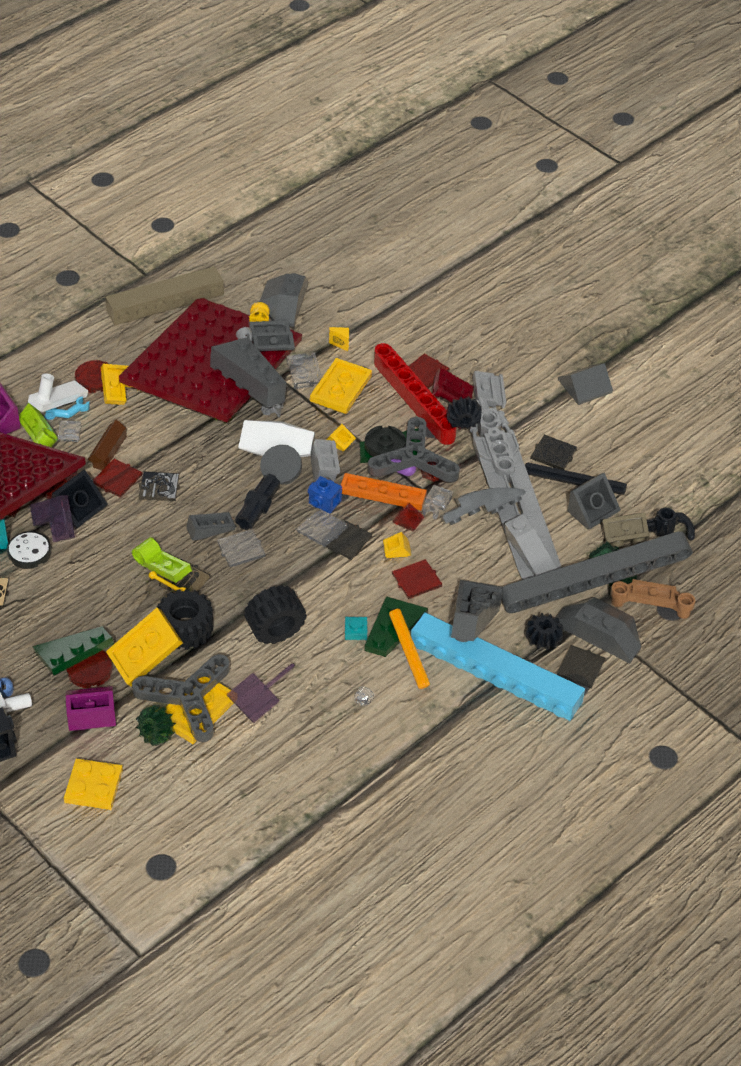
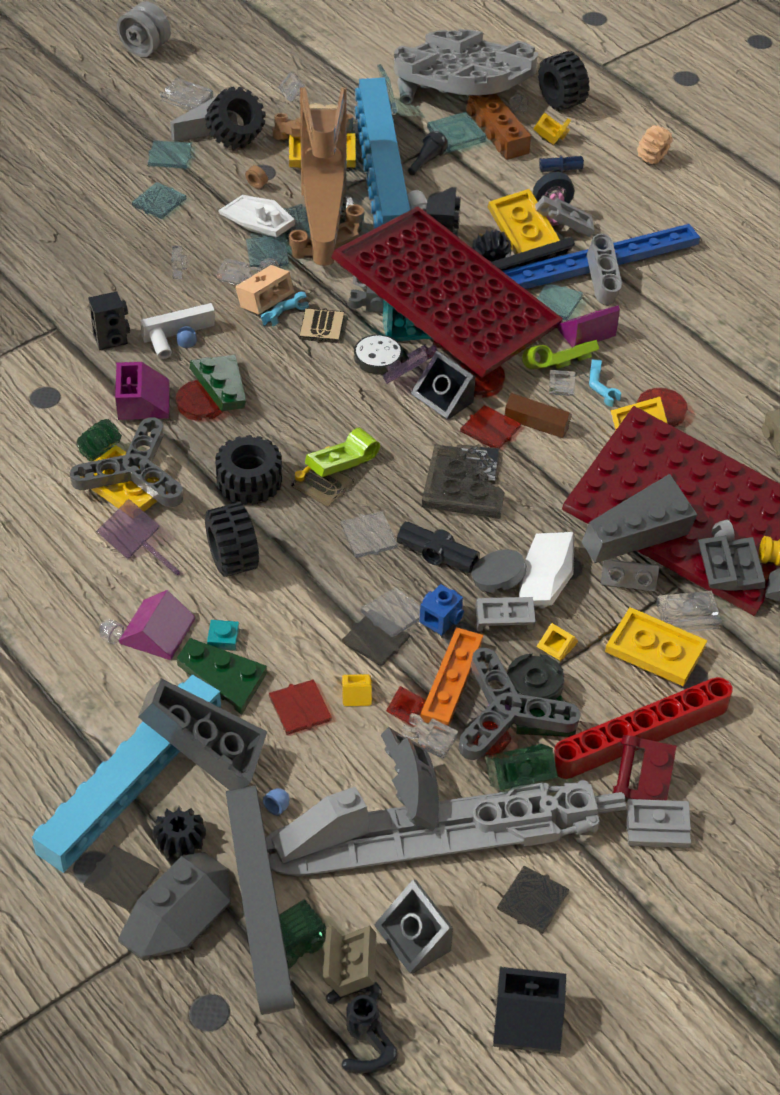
camera: 95 degrees right, 0 degrees up
(50, 397) = (613, 366): white piece -> none
(93, 784) = (45, 402): yellow plate -> none
(144, 646) = (206, 429): yellow plate -> none
(188, 492) = (460, 486): none -> clear smoke plate
(202, 525) = (404, 486): dark grey slope -> none
(339, 337) = (752, 651): yellow slope -> none
(351, 670) = (158, 626): none -> magenta slope
(409, 648) = (175, 676): light orange axle -> none
(425, 369) = (702, 754): clear red piece -> none
(461, 449) = (521, 766): none -> clear green brick
(464, 413) = (573, 758): black gear -> none
(505, 579) = (276, 801): none -> medium blue hinge
(569, 477) = (472, 918): black axle -> none
(587, 383) = (684, 961): dark grey slope -> none
(639, 446) = (529, 1010): none -> black slope
(652, 594) = (230, 983): medium nougat plate -> none

